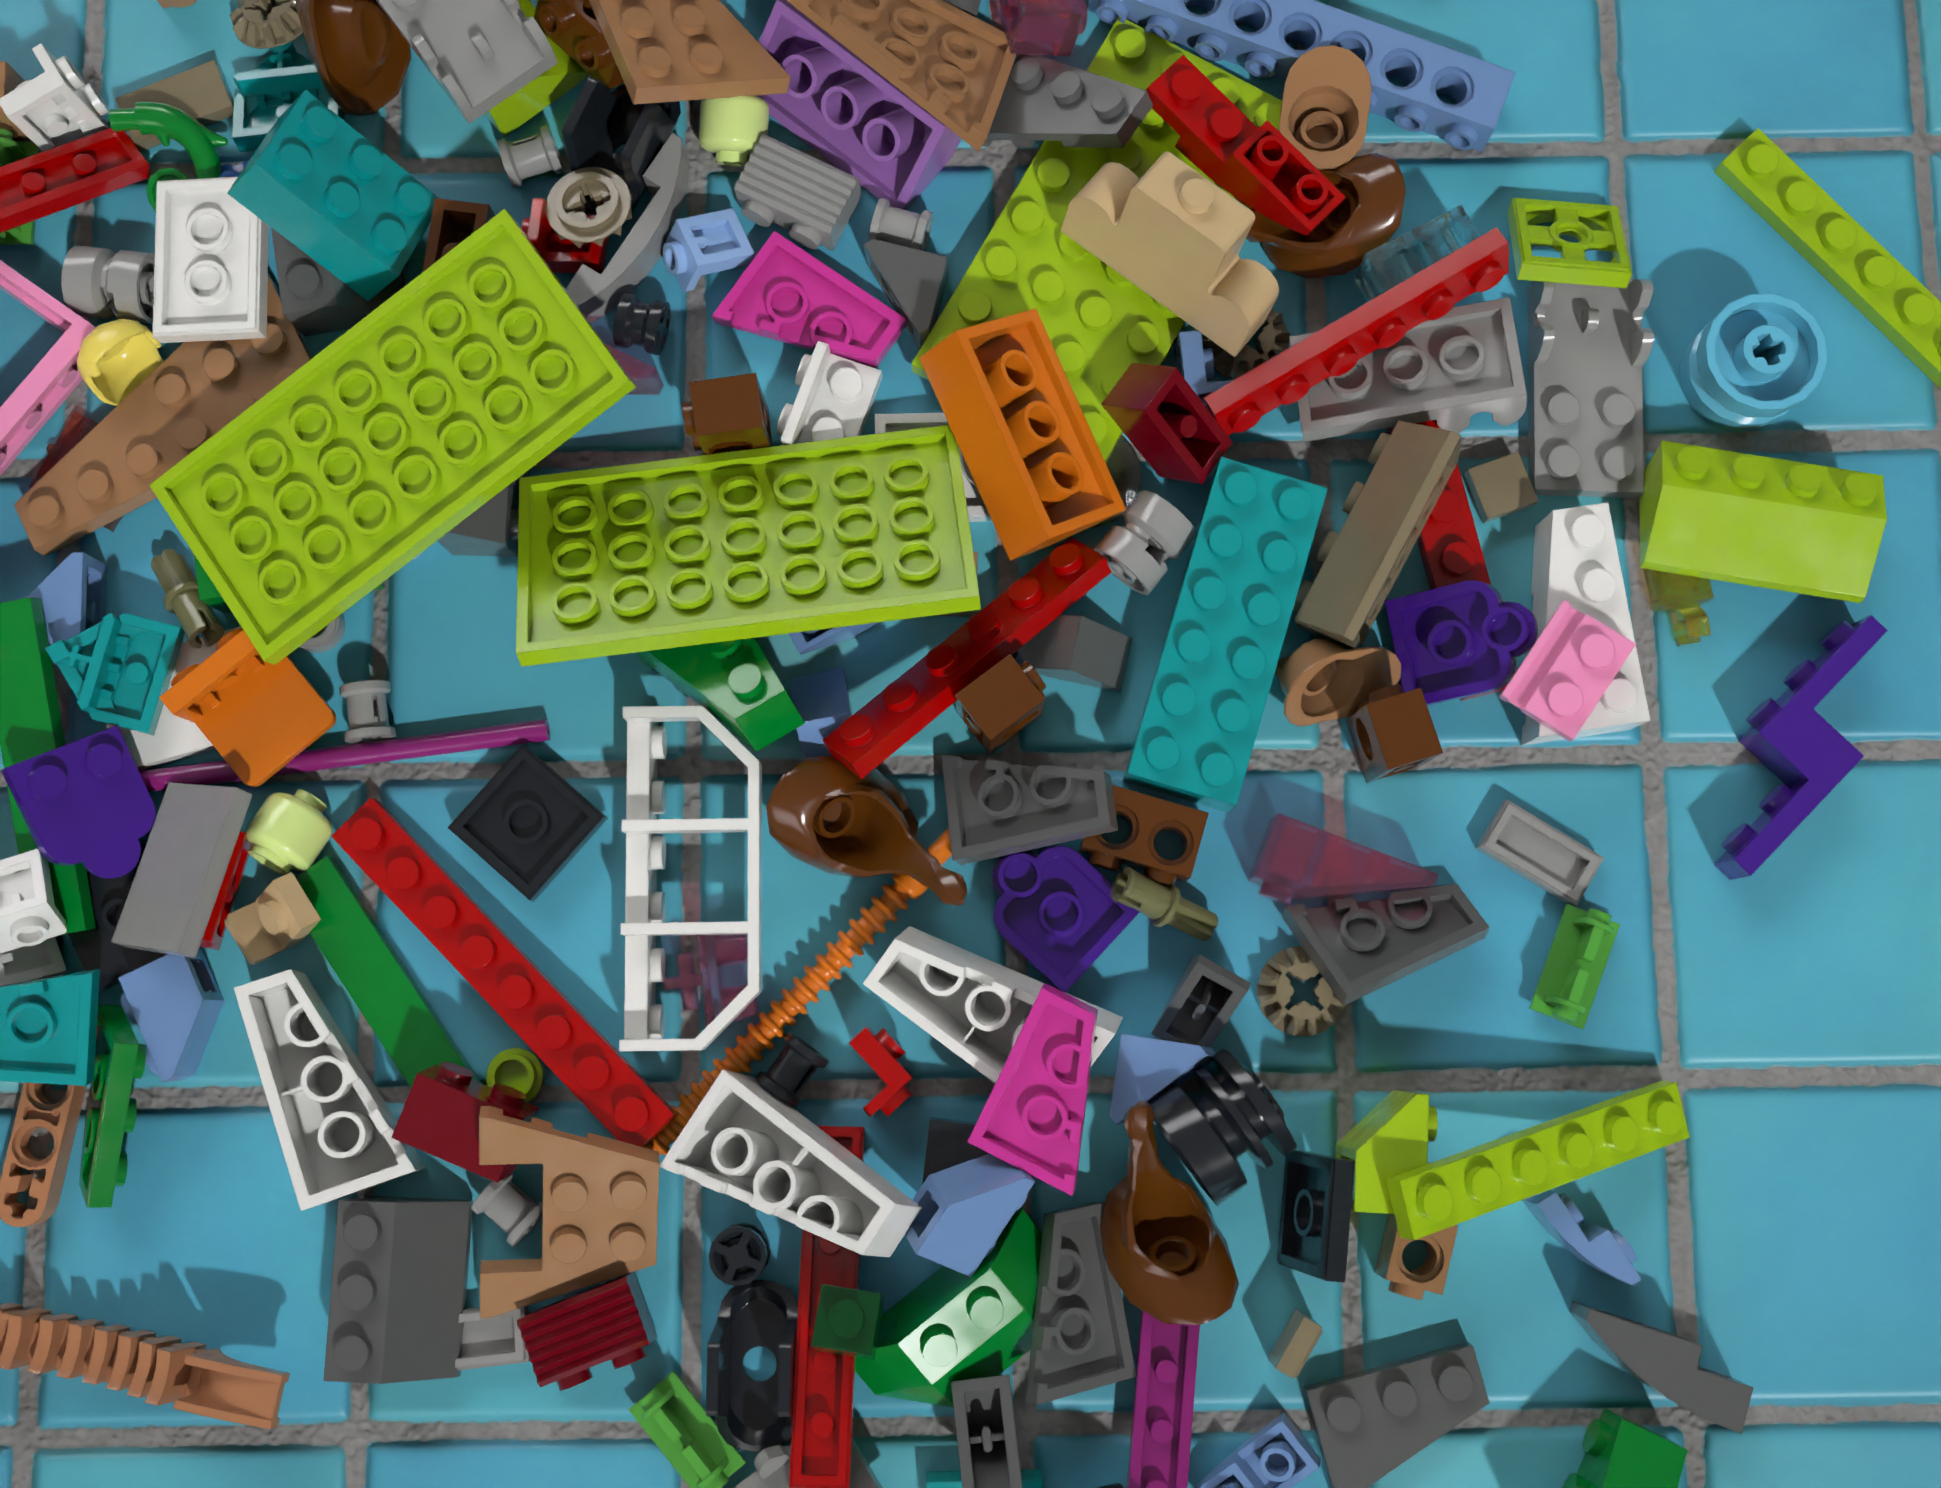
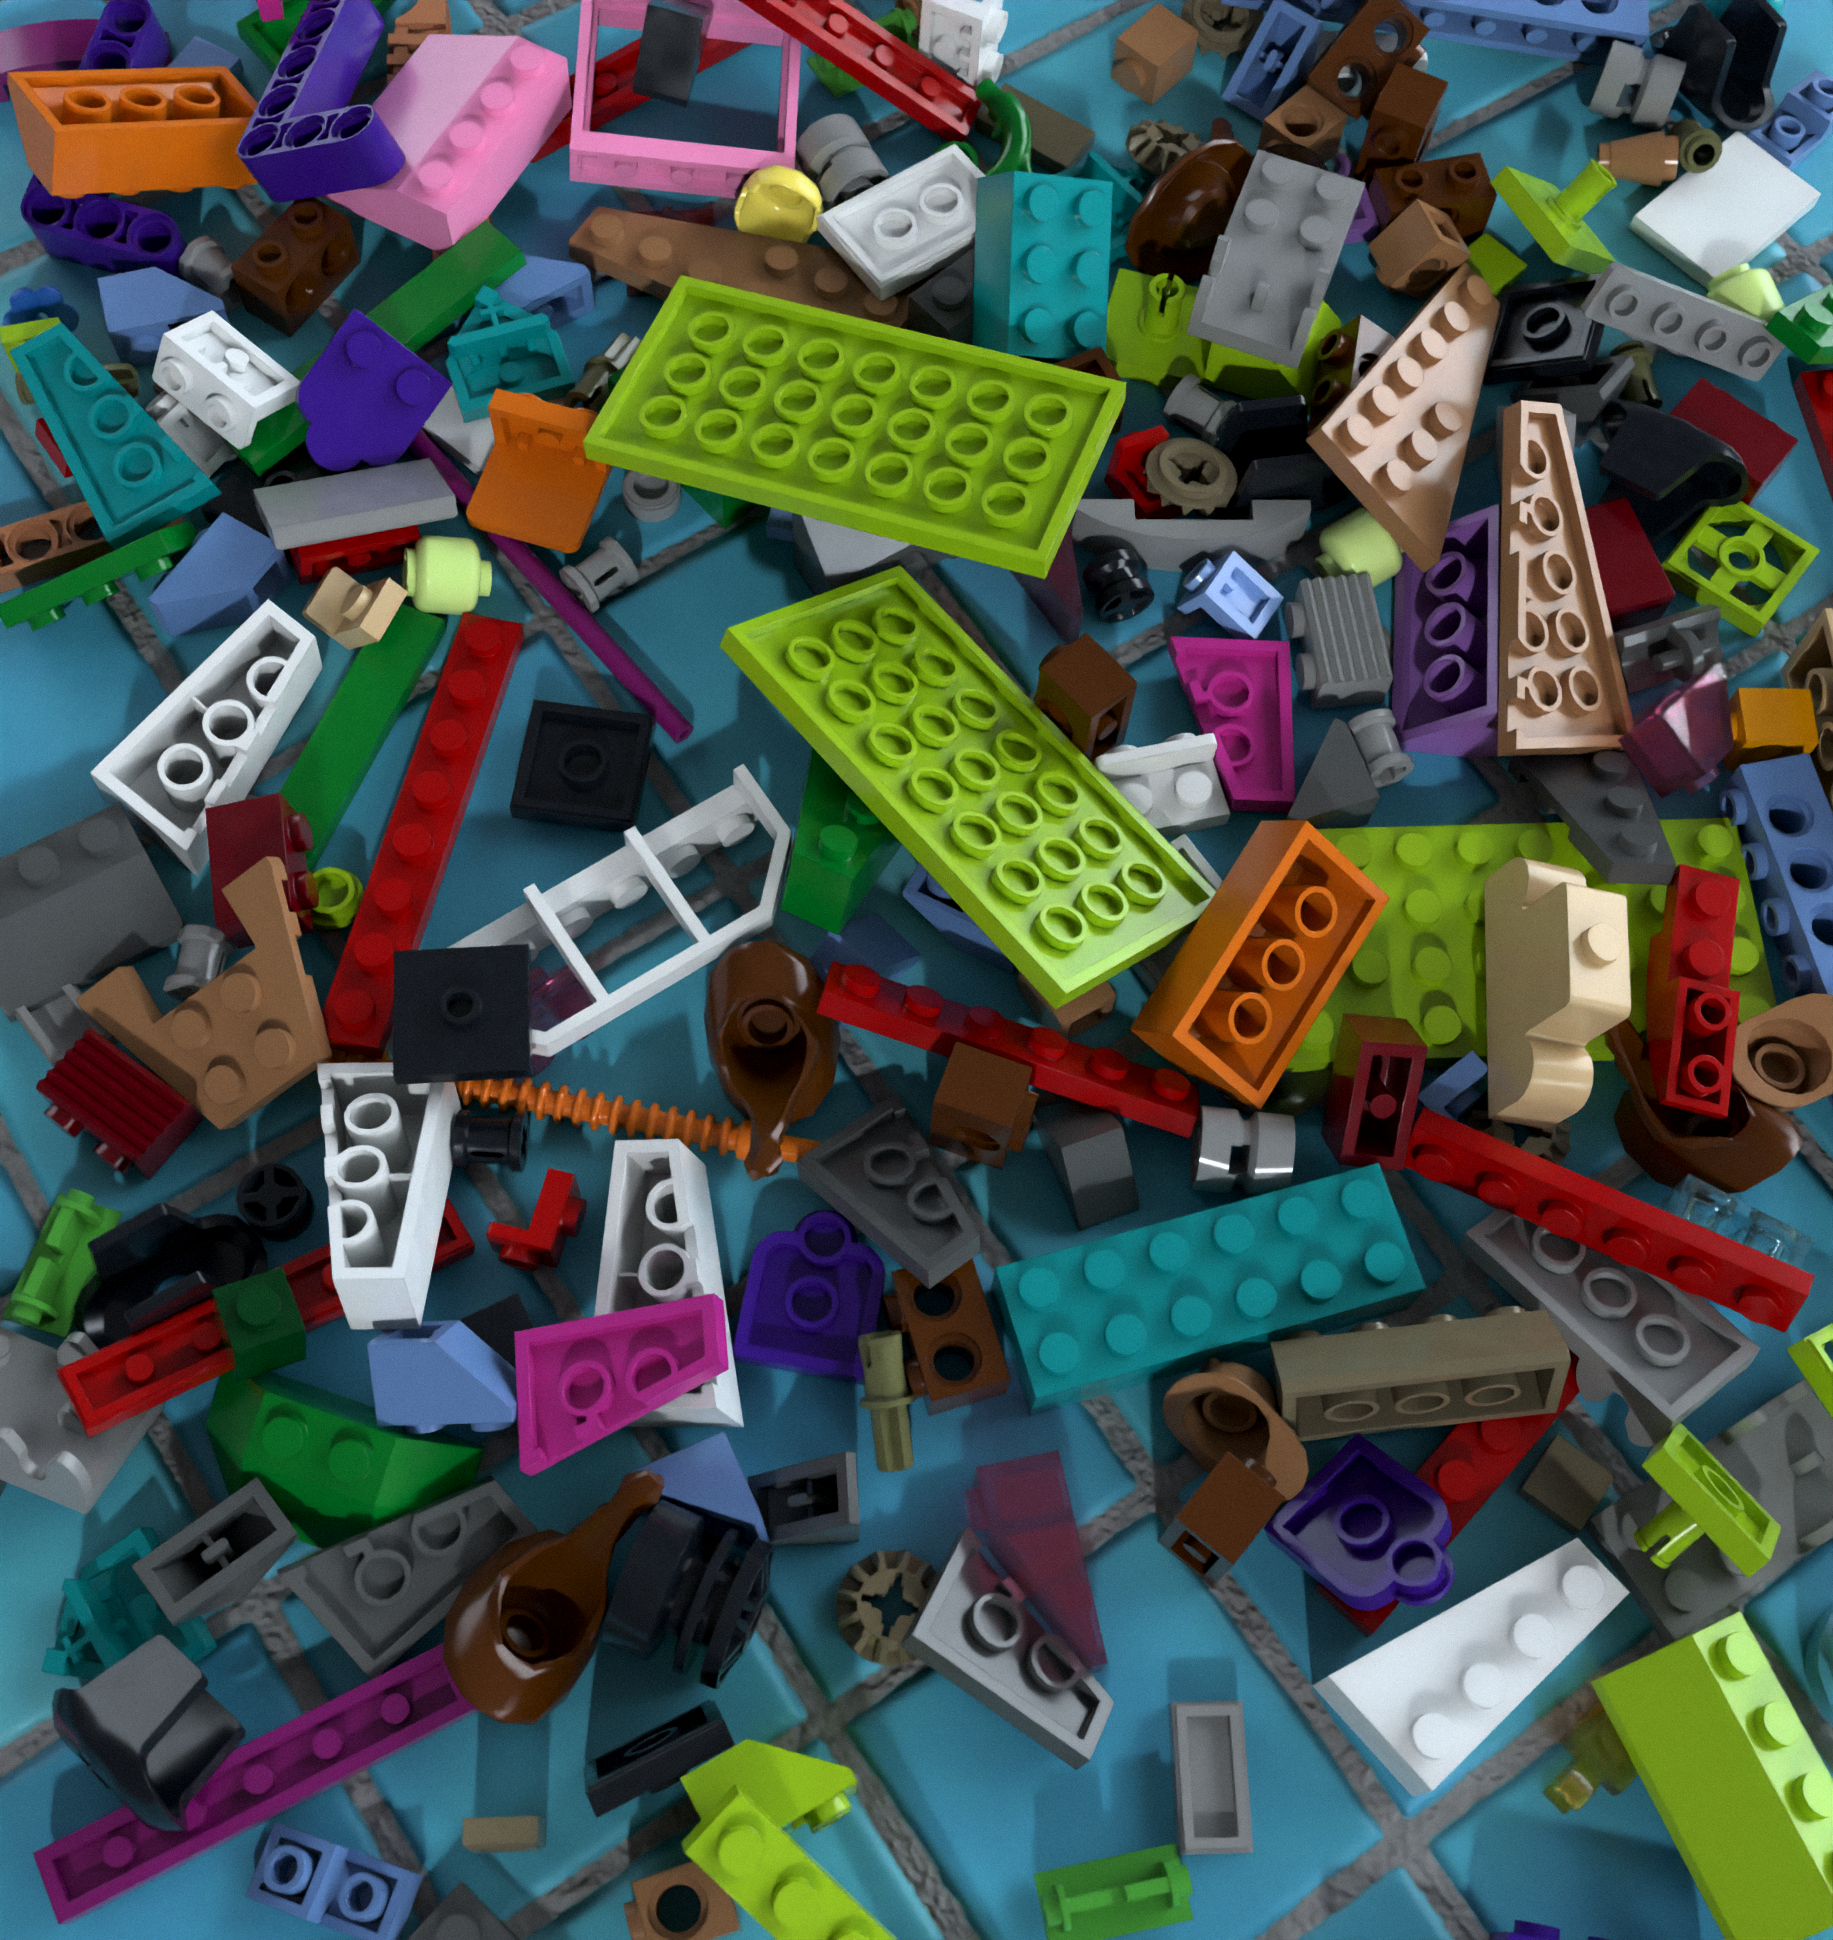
camera: 50 degrees right, 15 degrees down
(432, 138) = (1150, 327): none -> lime tile
(697, 1039) = (462, 1014): none -> black plate
(1567, 671) = (1418, 1656): bright pink plate -> none
(1588, 408) = (1704, 1502): none -> lime tile

